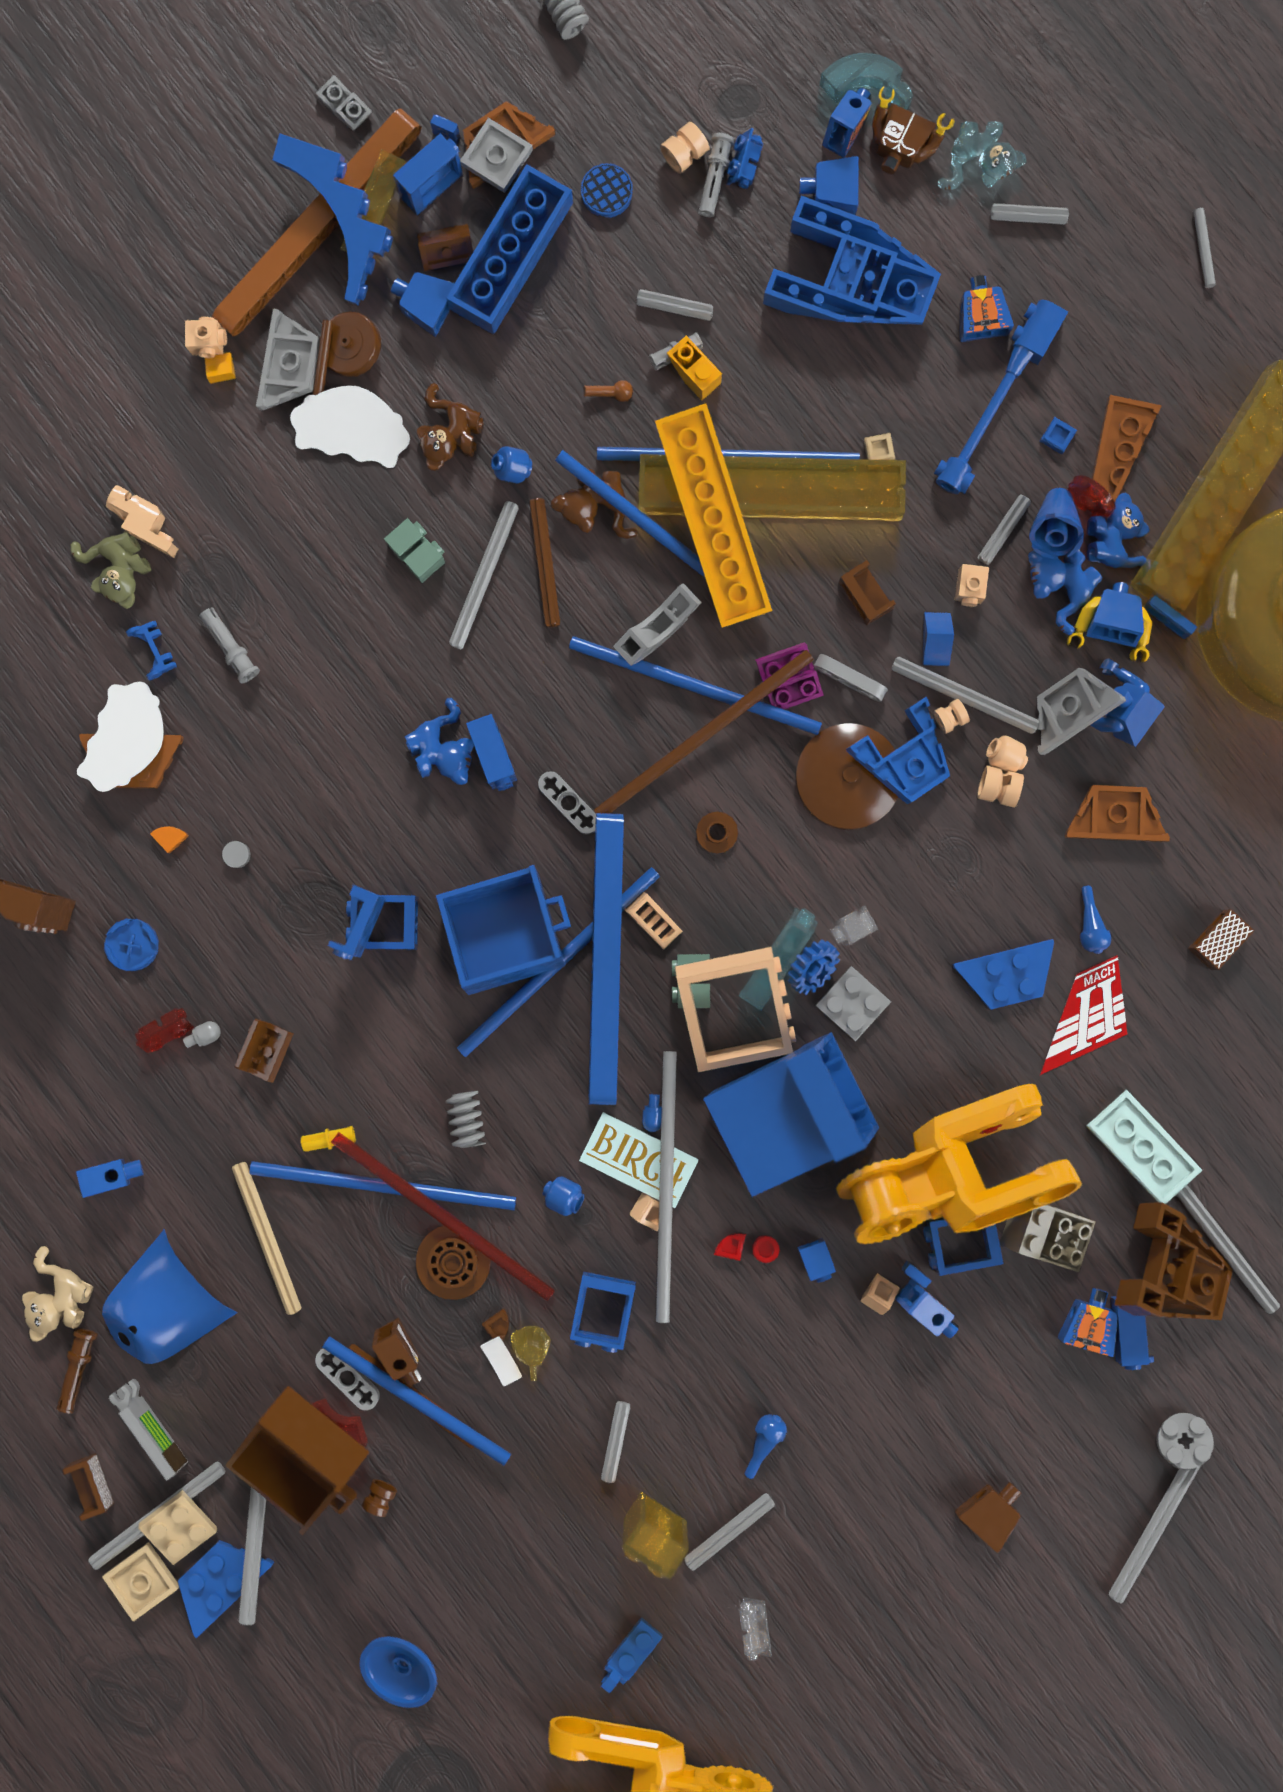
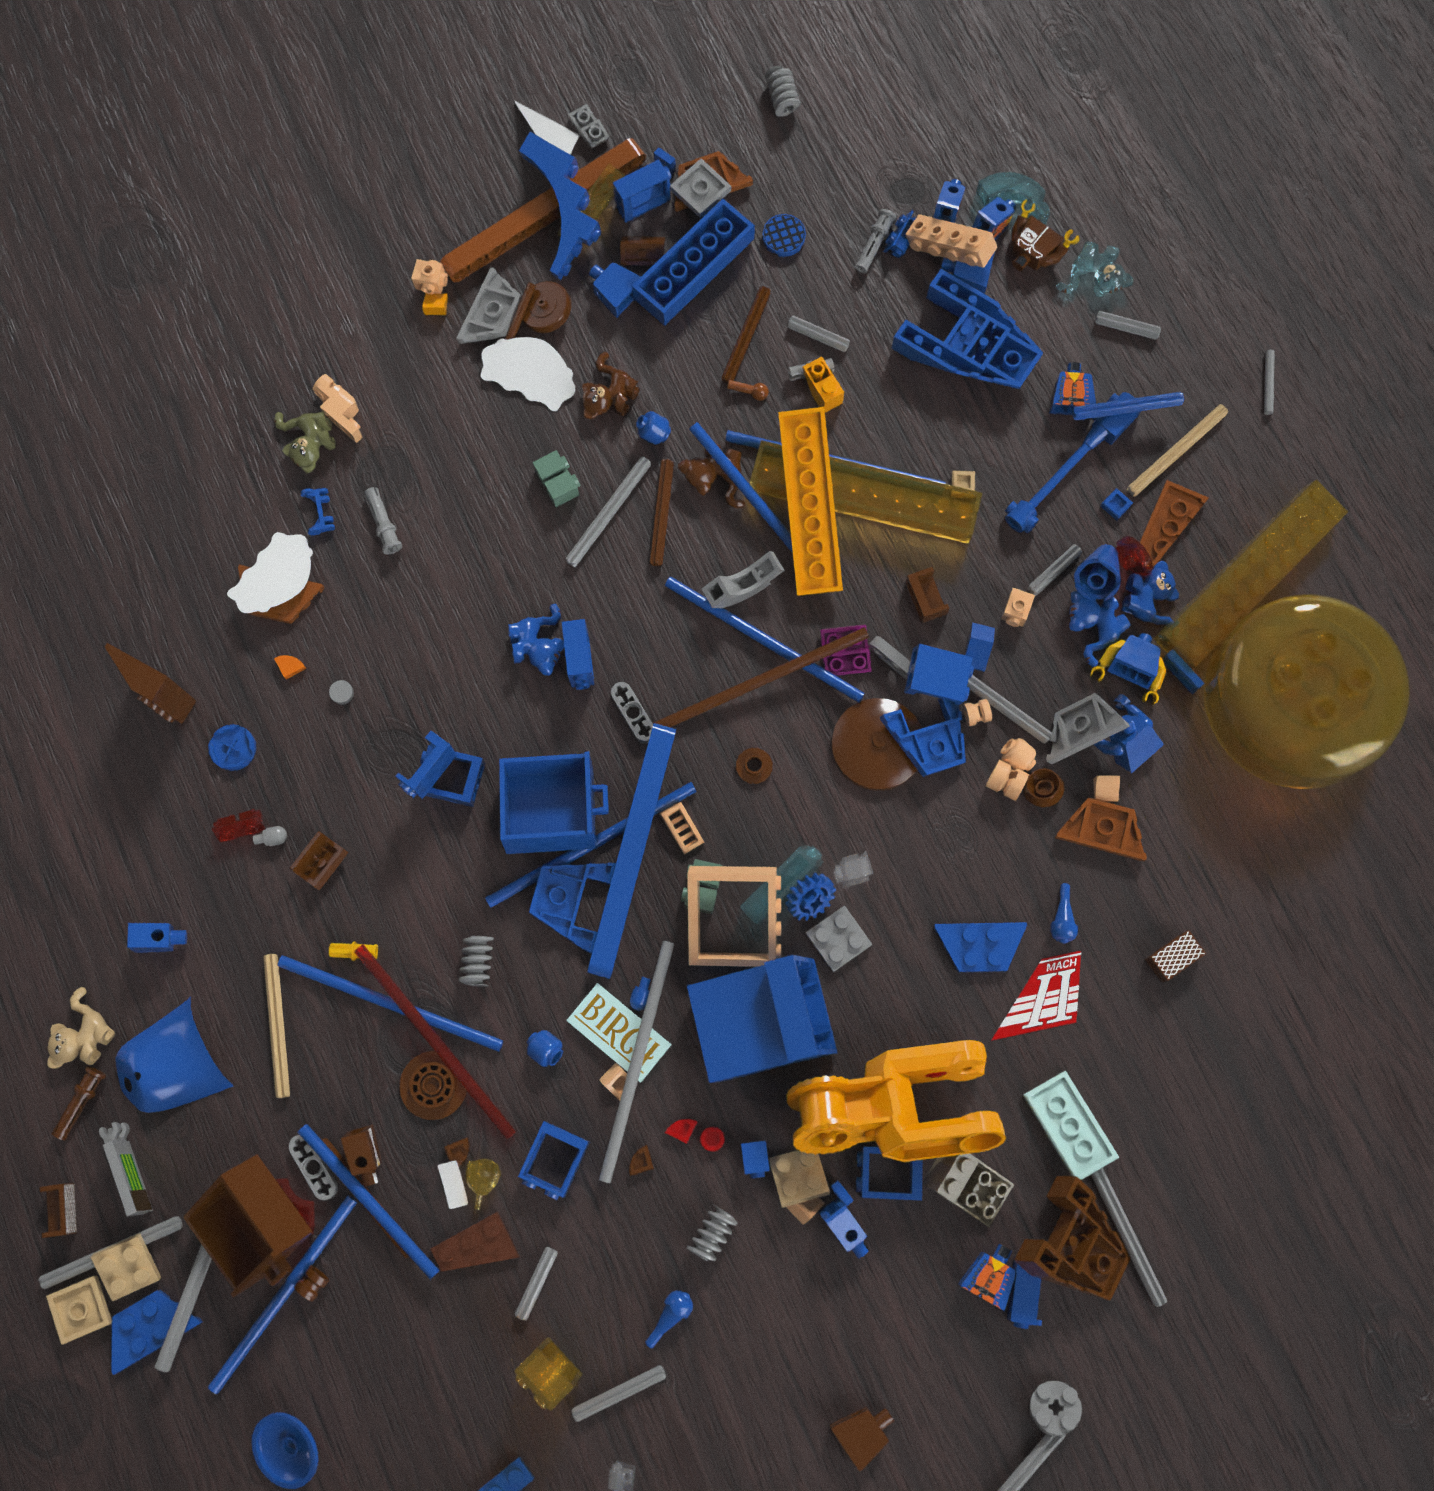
camera: 10 degrees right, 10 degrees down
(299, 121) = (549, 130): none -> white sticker
(351, 1515) = (282, 1295): none -> blue piece
(538, 1028) = (559, 896): none -> blue wing
(542, 1417) = (476, 1245): none -> copper wing
(591, 324) = (746, 334): none -> reddish brown axle
(686, 146) = (853, 215): light nougat wheel -> none
(695, 1290) = (641, 1161): none -> reddish brown tile
(790, 1349) = (712, 1234): none -> light grey piece
(792, 106) = (950, 198): none -> blue torso
(805, 158) = (951, 240): none -> light nougat brick
(867, 1269) = (798, 1177): none -> tan plate
(901, 684) = (939, 674): none -> blue panel
(1042, 784) = (1043, 788): none -> reddish brown hat
(1050, 317) = (1128, 406): none -> blue axle
(1110, 769) = (1106, 788): none -> light nougat slope
(1115, 354) = (1177, 450): none -> tan axle

